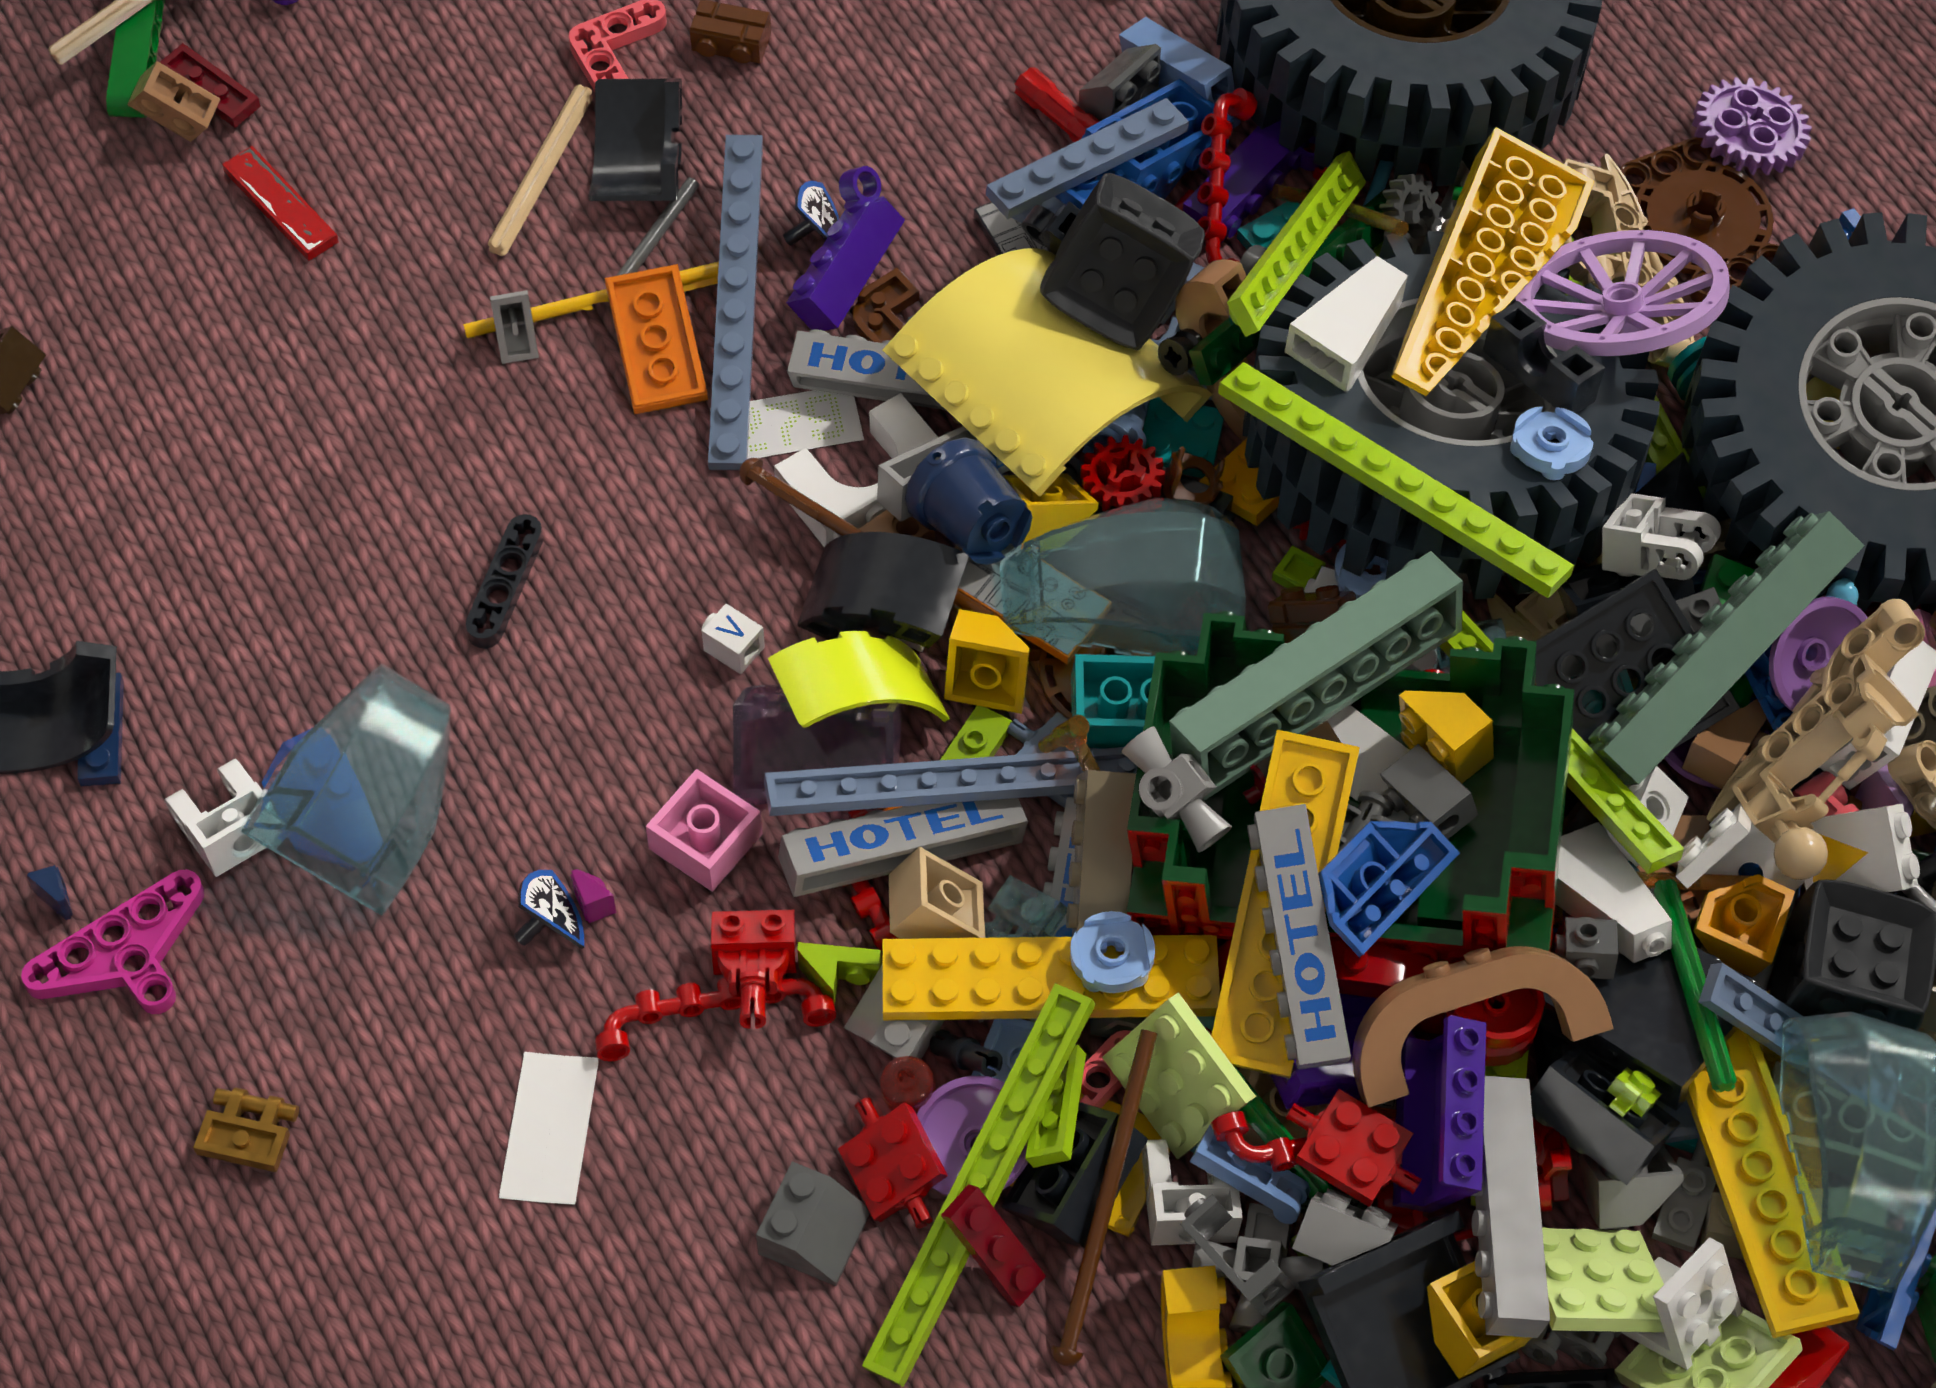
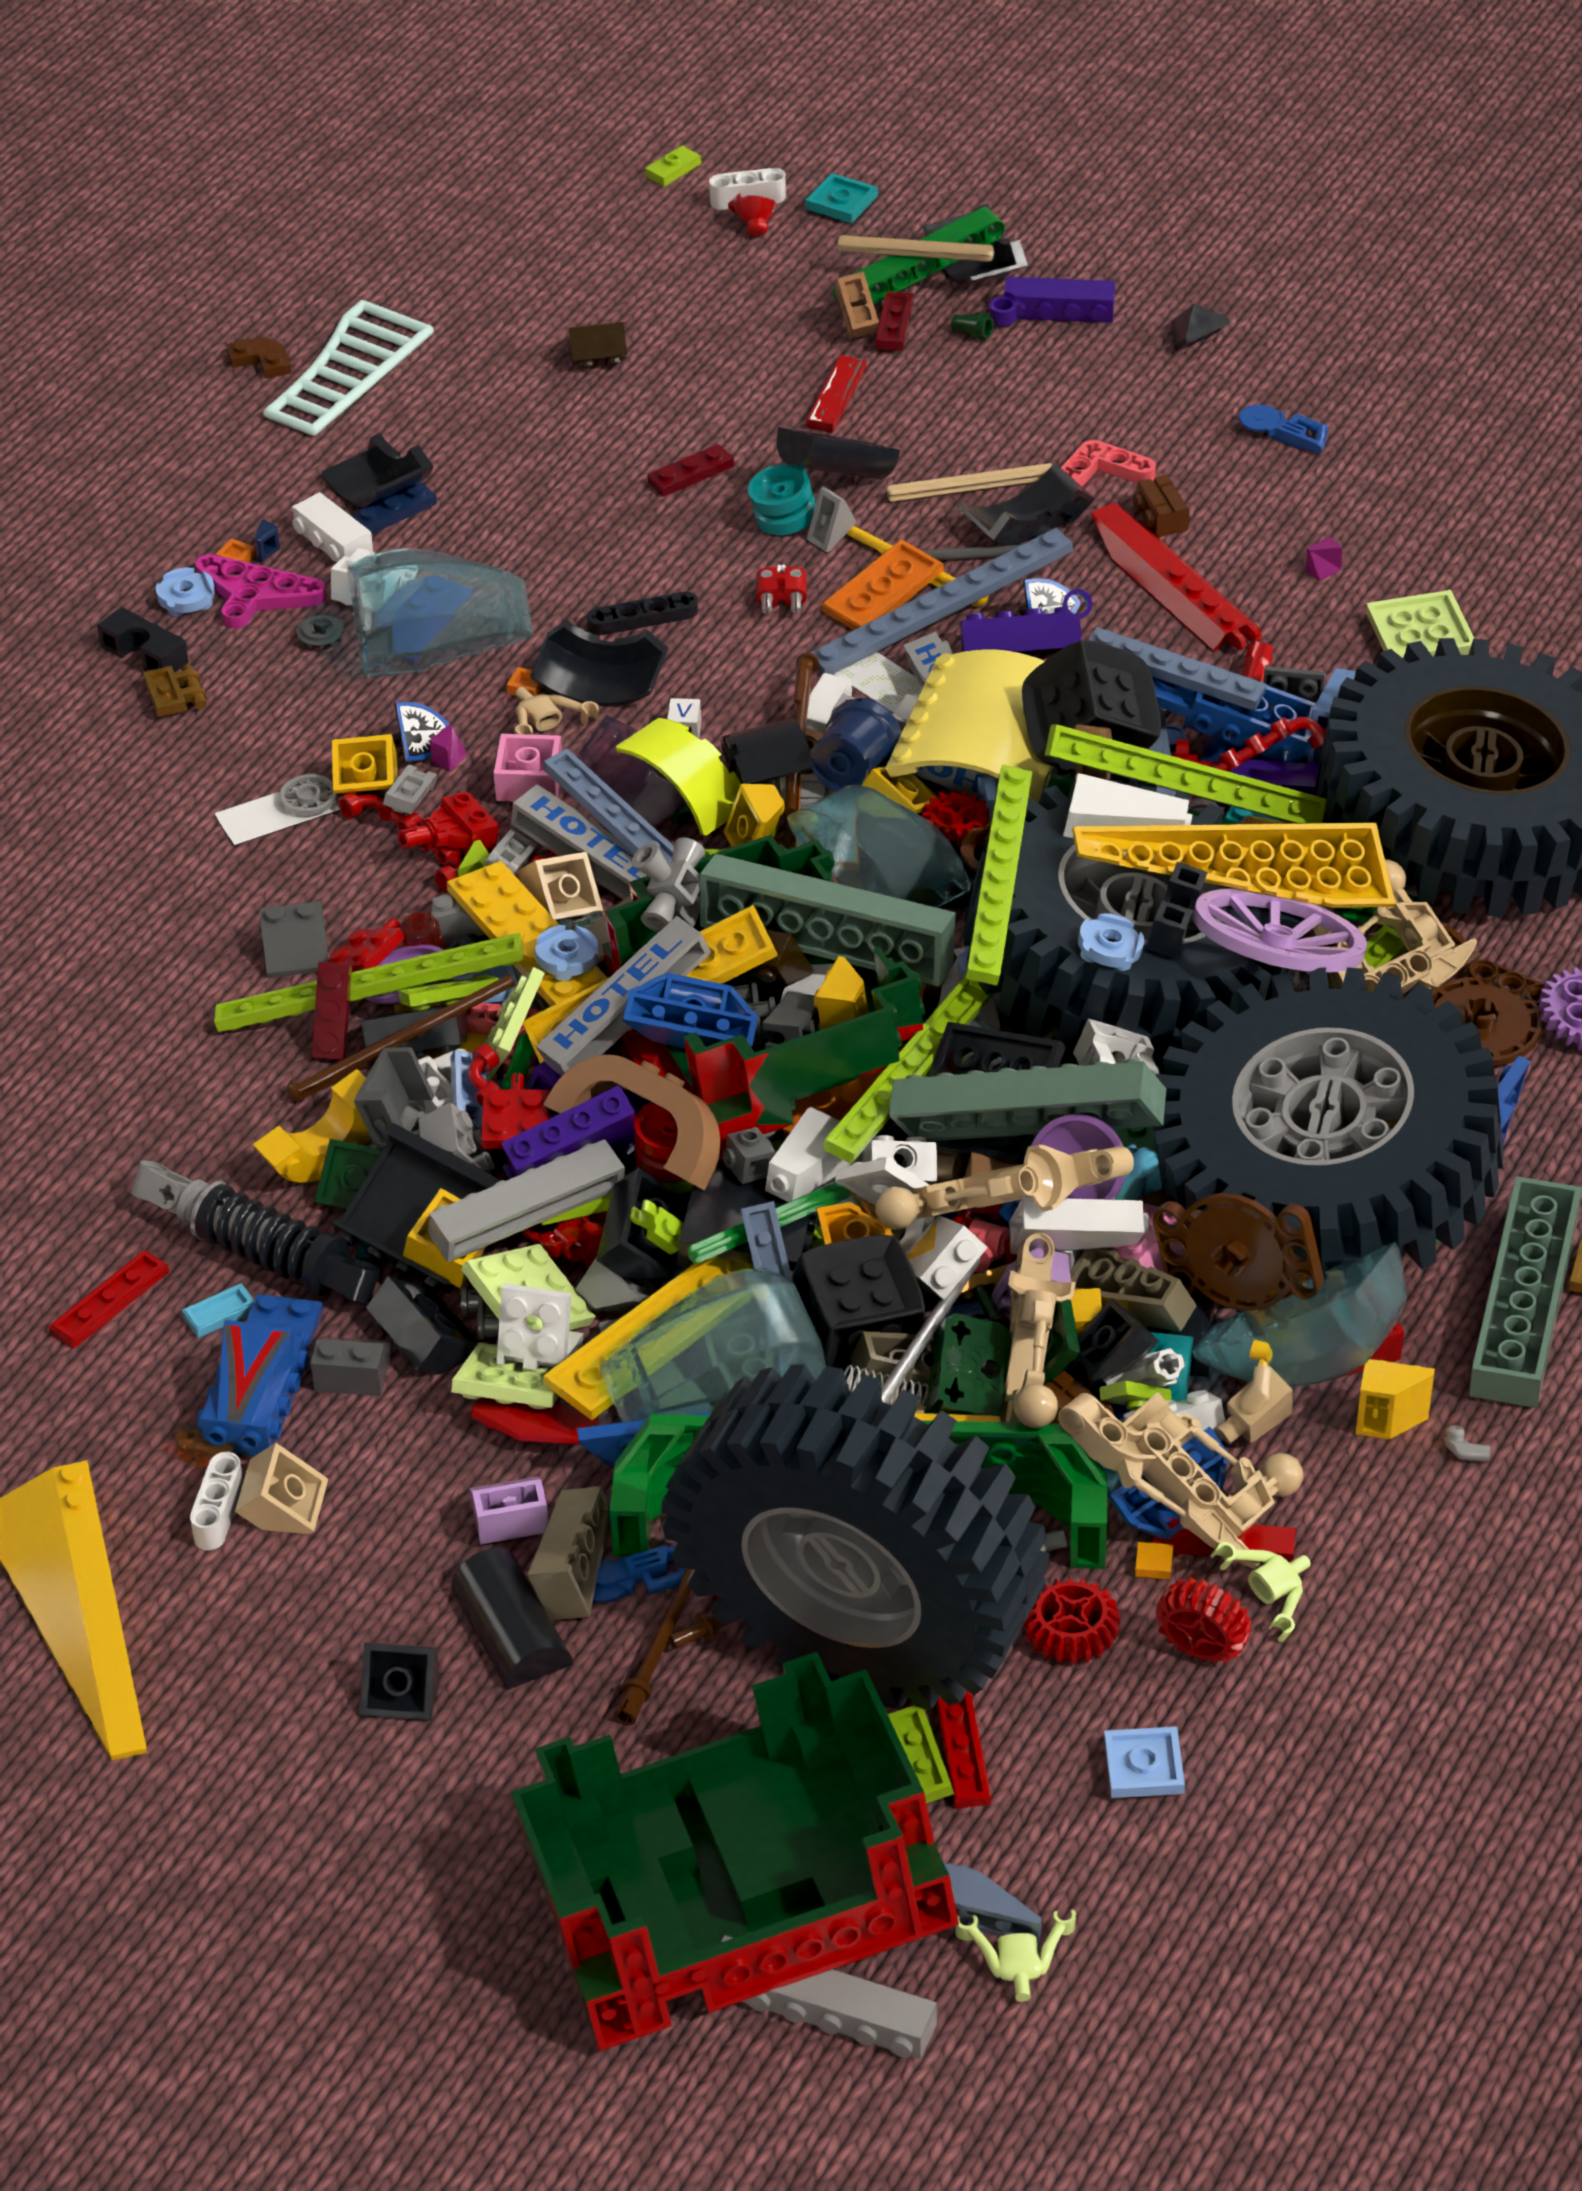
camera: 60 degrees right, 15 degrees down
(38, 933) = (237, 550): none -> orange tile
(72, 1047) = (198, 594): none -> light blue plate
(95, 811) = (330, 527): none -> white brick
(98, 1124) = (129, 632): none -> black arch
(254, 907) = (326, 625): none -> dark grey gear
(281, 23) = (974, 325): none -> dark green cone
(291, 405) = (690, 470): none -> dark red plate
(427, 255) = (835, 454): none -> black brick
(442, 347) = (782, 499): none -> teal wheel
(530, 756) = (522, 678): none -> orange tile
(554, 1080) = (308, 795): none -> light grey wheel
(574, 997) = (364, 763): none -> yellow slope
(578, 428) = (781, 586): none -> red piece
(583, 672) = (597, 670): none -> black panel
(601, 769) = (544, 714): none -> tan piece
(648, 968) = (409, 789): none -> light grey plate
(843, 921) = (512, 850): none -> light grey plate
(852, 90) = (1173, 581): none -> red hinge

